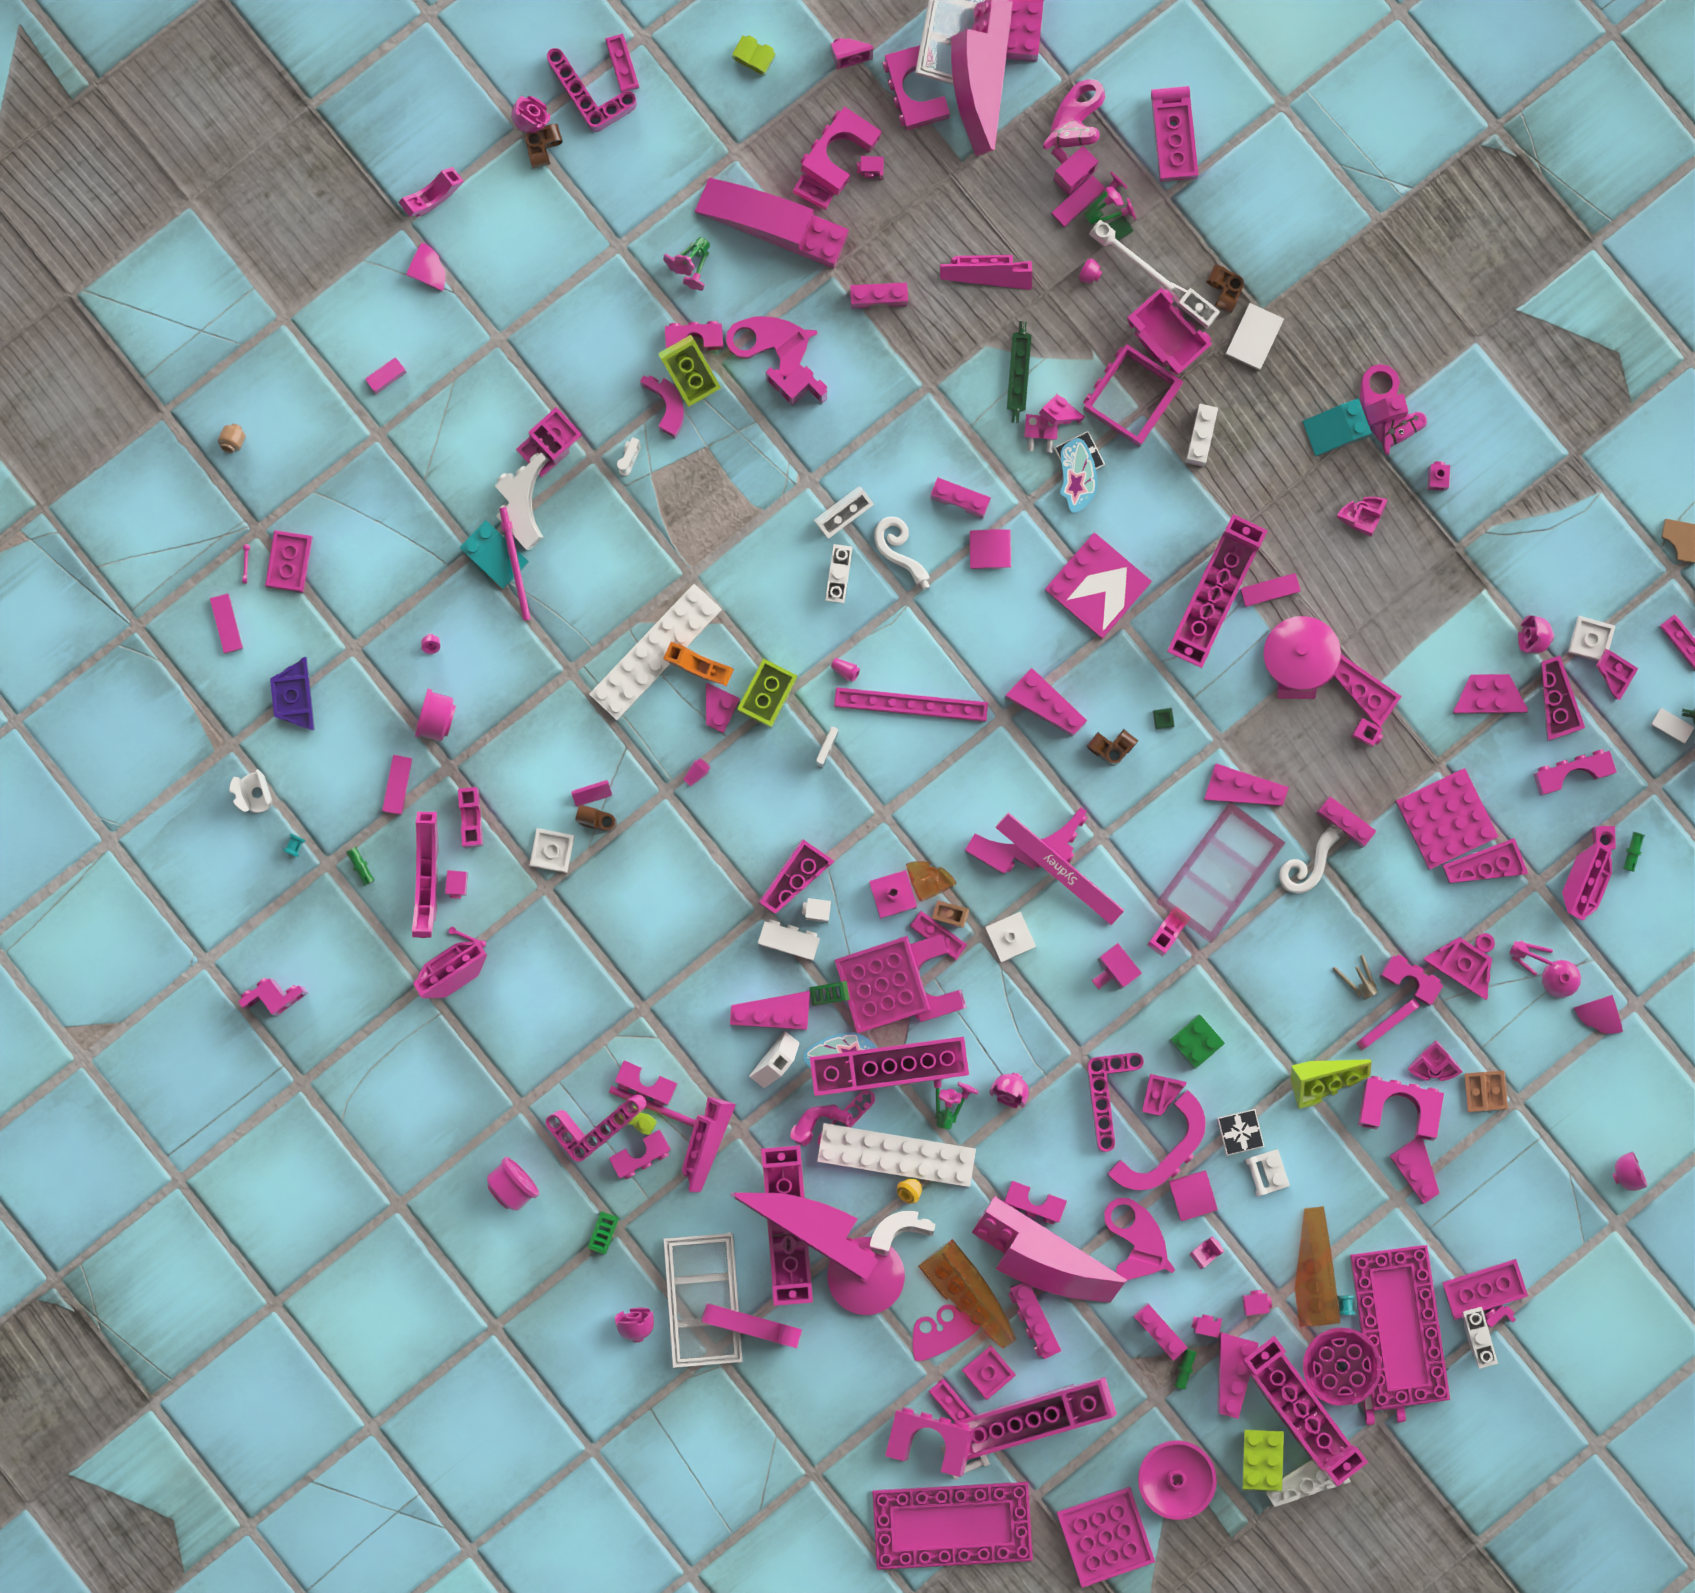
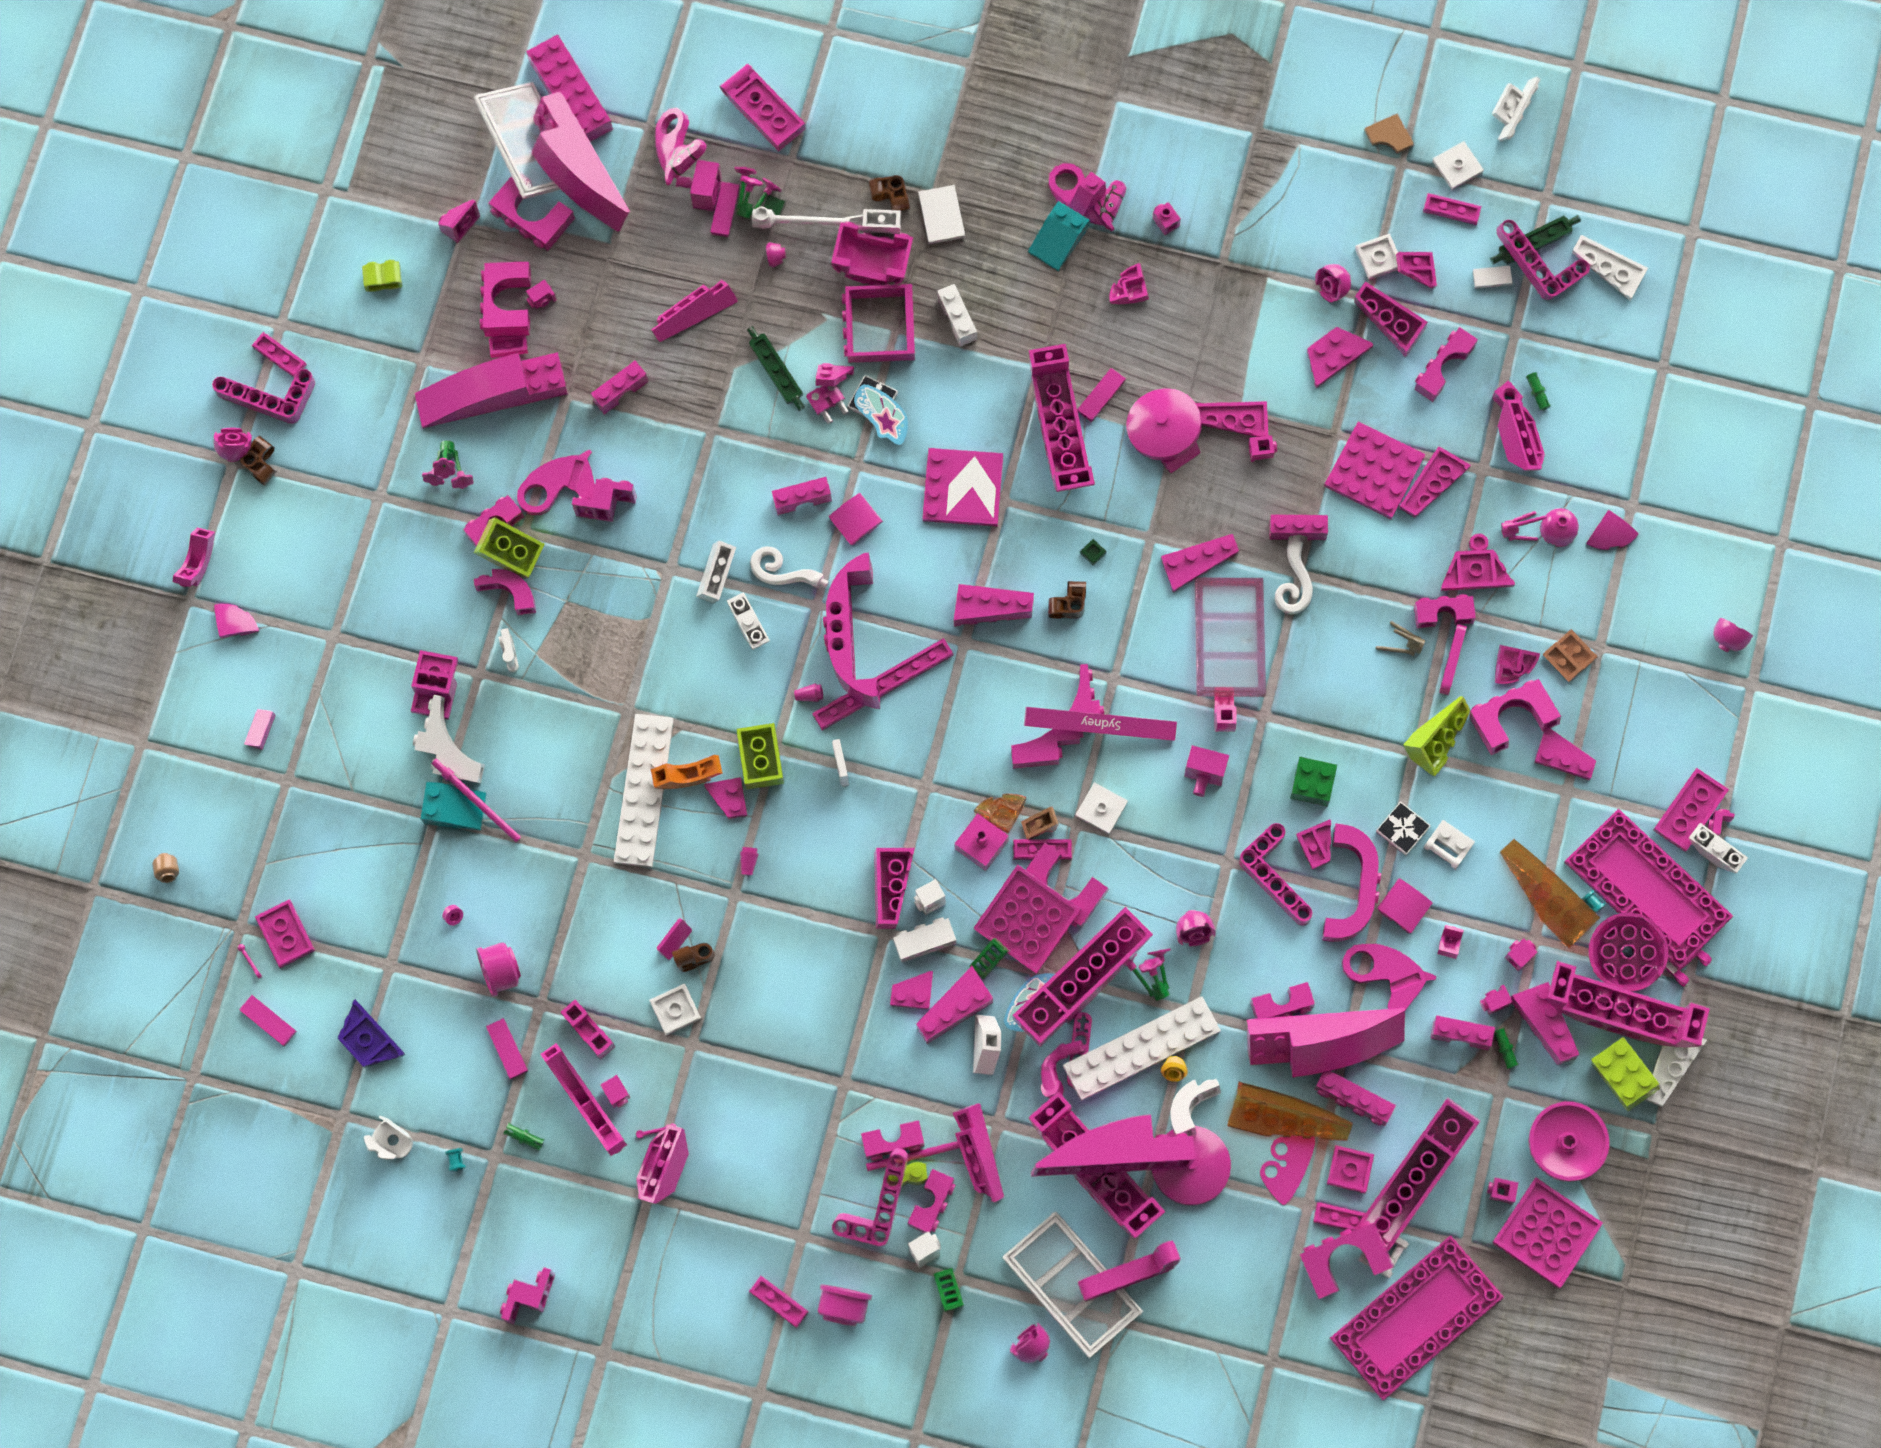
camera: 30 degrees left, 10 degrees down
(465, 1143) = (778, 1301): none -> dark pink tile
(605, 1190) = (925, 1249): none -> white brick
(749, 975) = (913, 992): none -> dark pink wing
(924, 612) = (839, 630): none -> dark pink slope
(1098, 1485) = (1509, 1187): none -> dark pink brick

